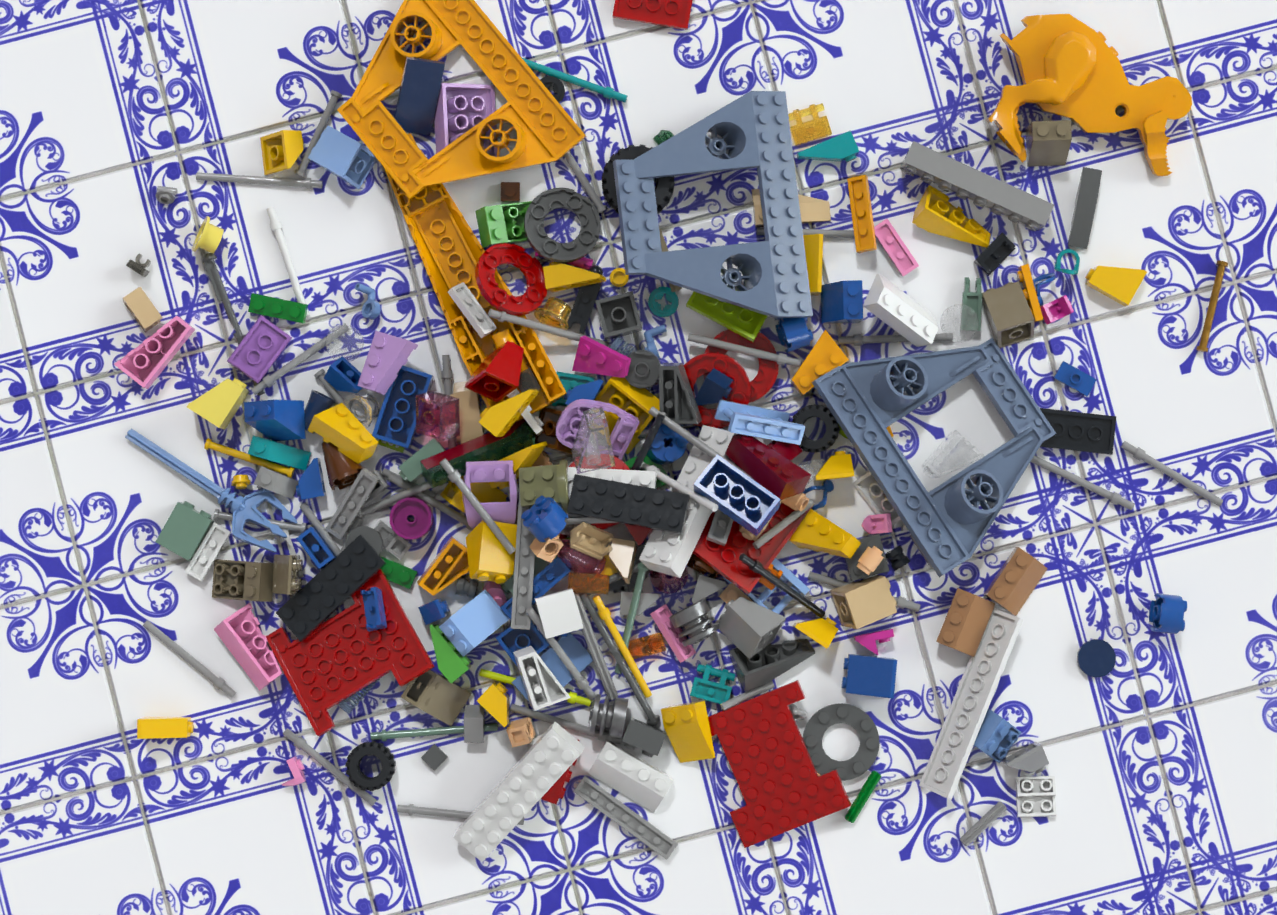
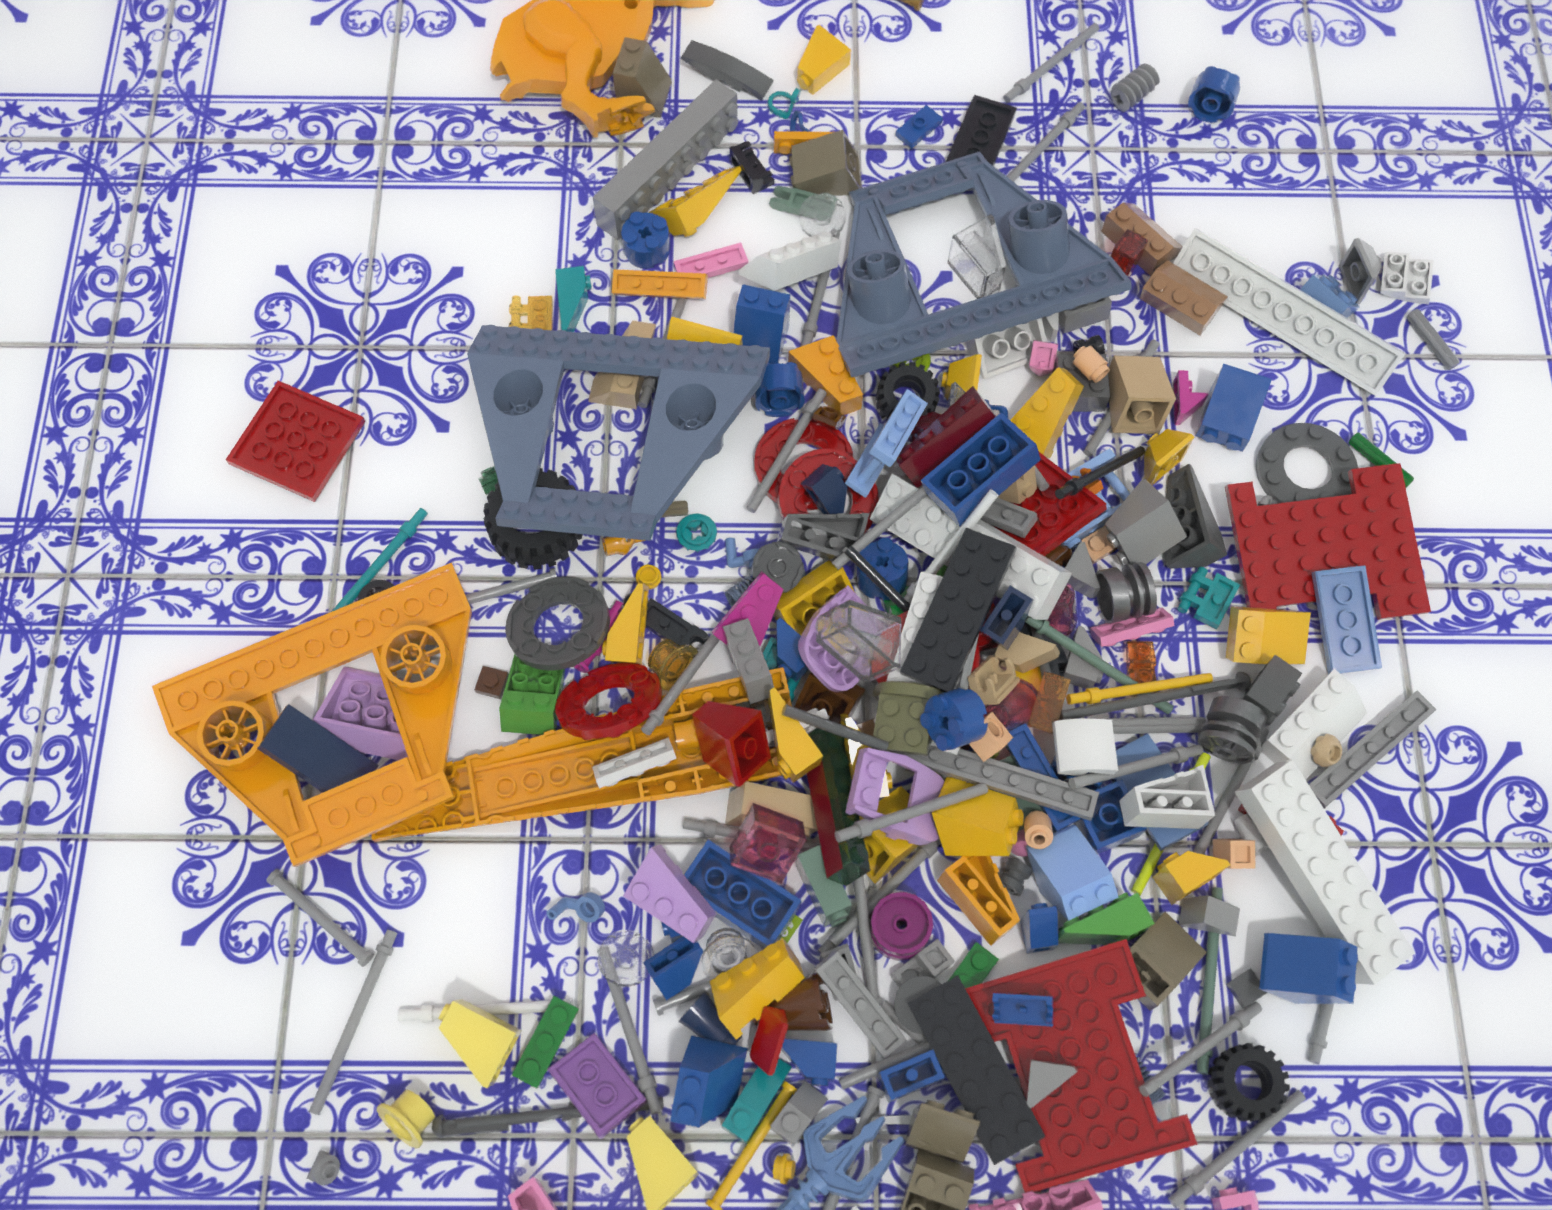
camera: 80 degrees left, 20 degrees down
(265, 265) = (478, 1039): none -> light yellow slope
(281, 150) = (322, 975): yellow slope -> none
(313, 451) = (769, 1039): none -> red slope
(334, 632) = (1045, 1078): none -> light grey slope
(343, 157) = (363, 888): light blue slope -> none
(409, 753) = (1237, 1021): none -> light grey bar
(451, 791) = (1308, 969): none -> blue slope
(496, 594) = (1038, 830): none -> light nougat brick
(517, 440) = (835, 728): none -> dark grey bar
(561, 368) = (748, 660): none -> light grey brick
(613, 785) = (1326, 750): none -> tan plate
(618, 315) = (698, 585): dark grey brick -> none
(632, 539) = (1007, 618): none -> dark blue slope
(718, 786) = (1346, 619): none -> medium blue tile
(735, 318) = (743, 444): lime plate -> none
(747, 695) = (1233, 562): light grey bar -> none
(778, 374) = (829, 417): none -> reddish brown slope
(908, 183) = (645, 239): none -> blue brick
(984, 570) = (1129, 251): none -> clear red slope
(1056, 309) = (834, 118): dark pink bracket -> none
(1096, 658) = (1250, 180): dark blue tile -> none
(1160, 545) = (1134, 87): none -> light grey piece

